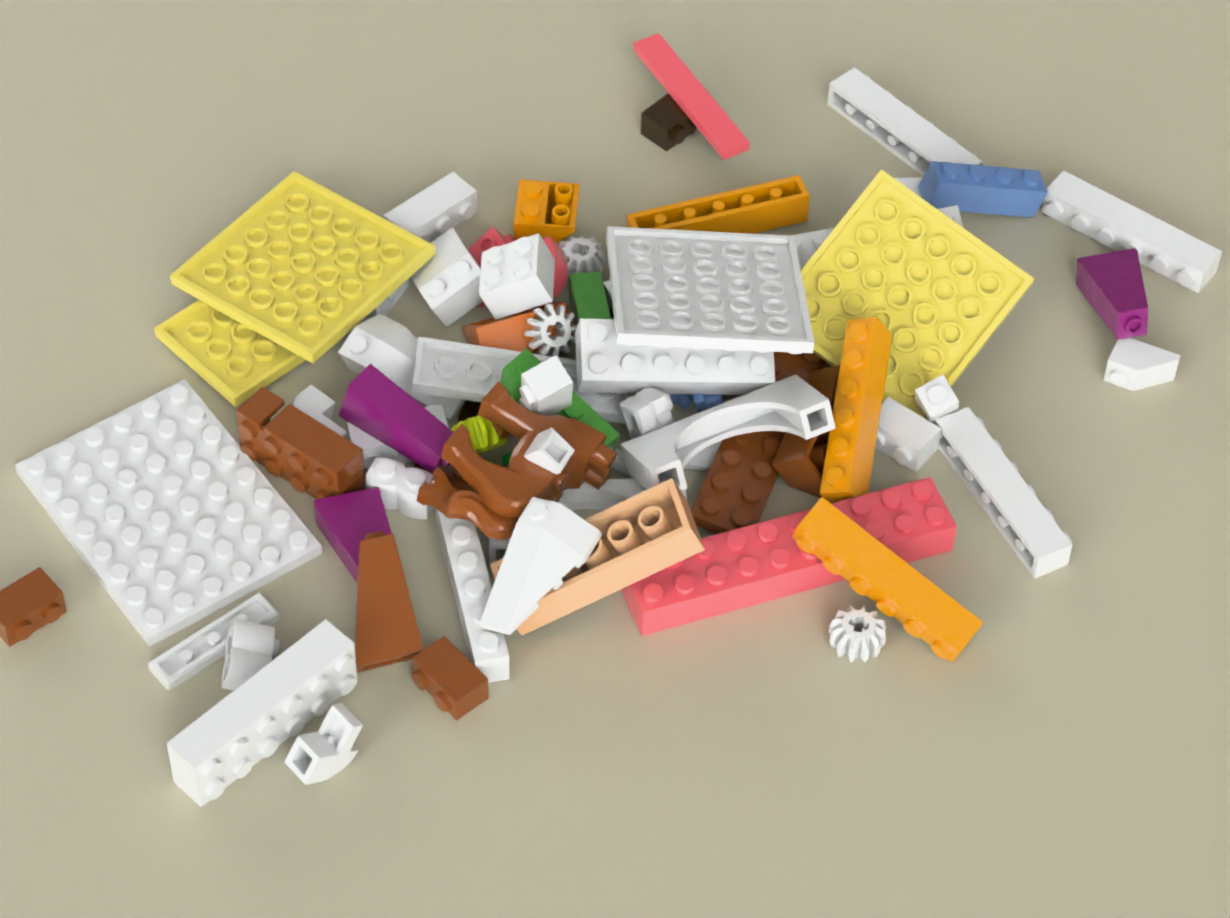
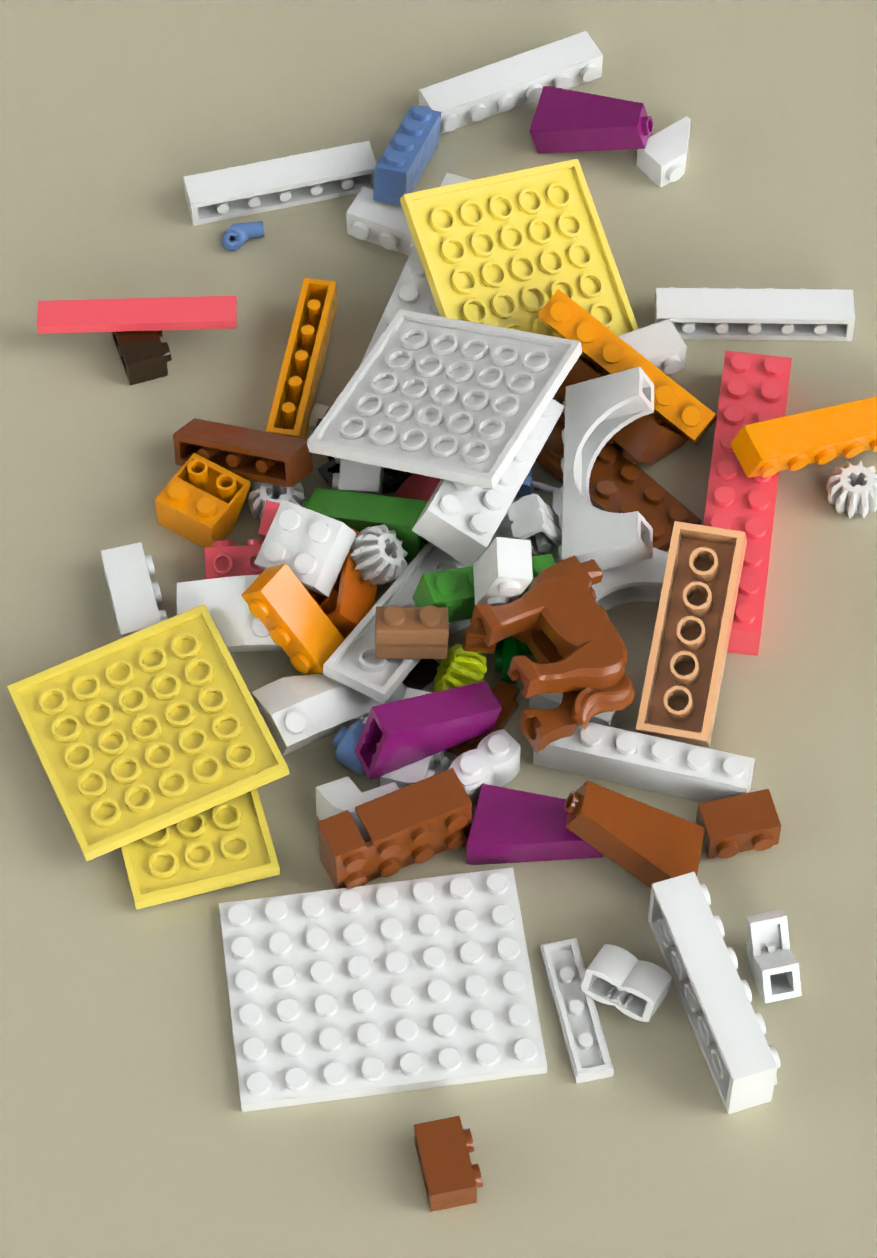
camera: 60 degrees left, 5 degrees up
(449, 297) = (293, 618): none -> light orange brick
(473, 368) = (411, 632): none -> medium nougat brick
(539, 554) = (685, 673): white wedge -> none
(549, 451) = (578, 605): white slope -> none
(599, 207) = (245, 451): none -> dark orange brick
(835, 131) = (240, 233): none -> medium blue arm
(936, 399) = (641, 304): white brick -> none

